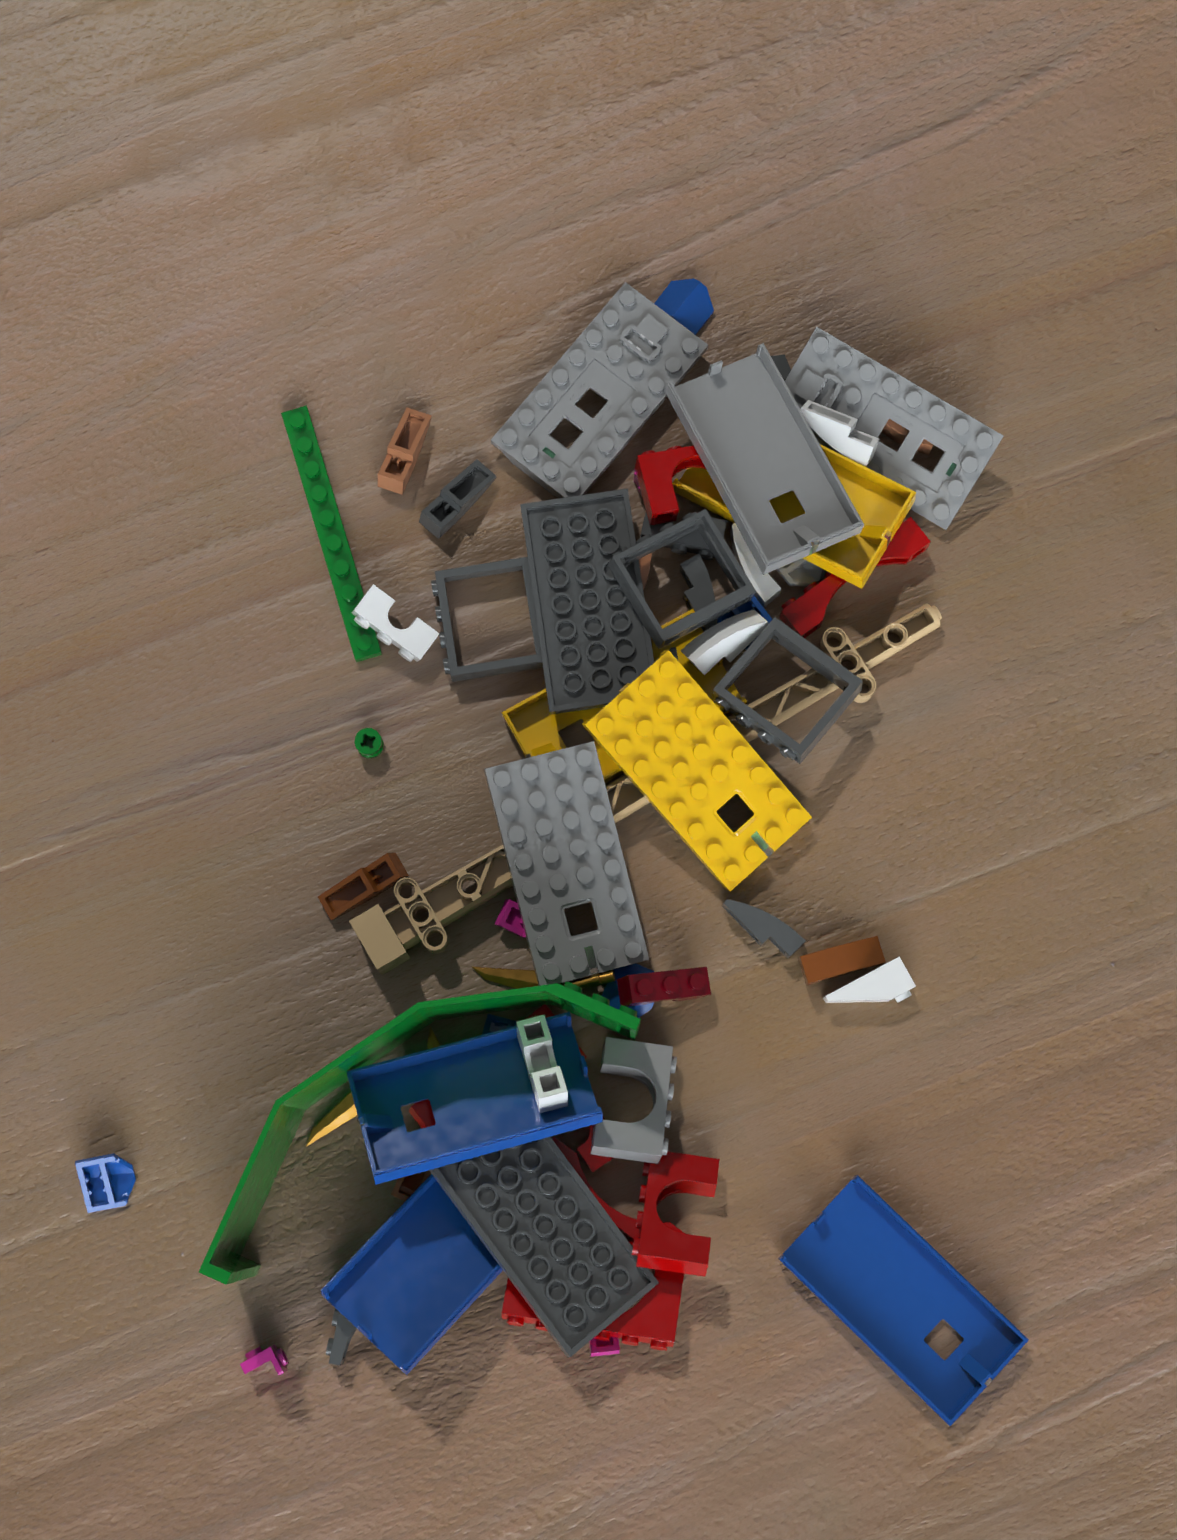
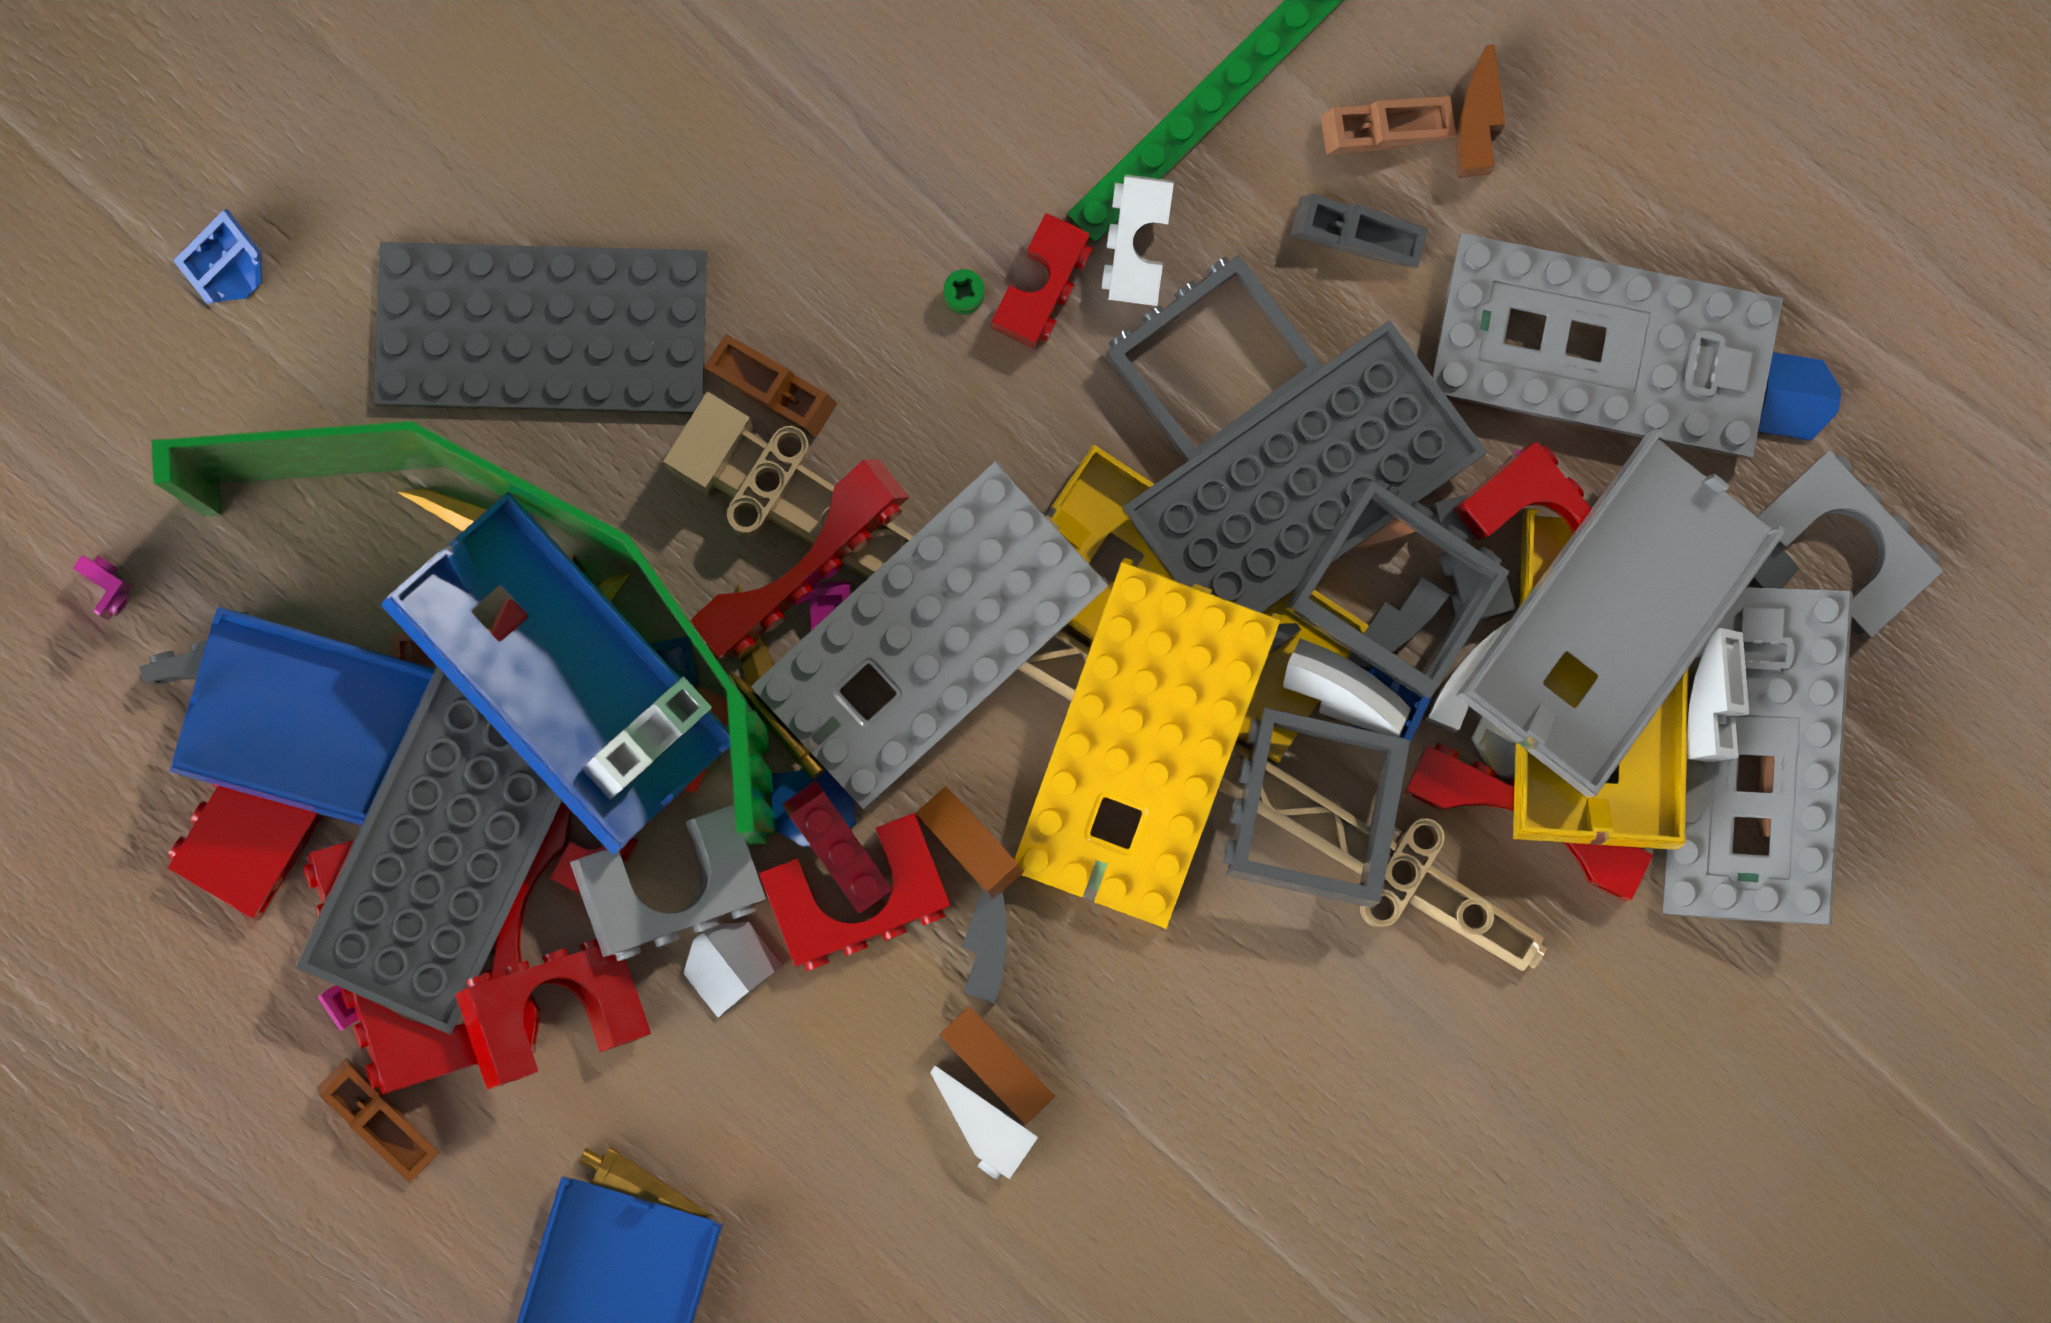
camera: 55 degrees right, 5 degrees up
(252, 1007) = (540, 328): none -> dark grey plate
(374, 674) = (1028, 314): none -> red arch
(428, 396) = (1479, 118): none -> dark orange slope
(467, 864) = (858, 506): none -> red arch
(474, 1356) = (242, 848): none -> red panel
(685, 1358) = (377, 1120): none -> dark orange slope
(700, 906) = (969, 842): none -> dark orange slope
(700, 1091) = (729, 964): none -> light grey slope
(708, 1029) = (814, 935): none -> red arch
(795, 1222) = (626, 1177): none -> pearl gold bar
(812, 297) = (1901, 563): none -> light grey arch

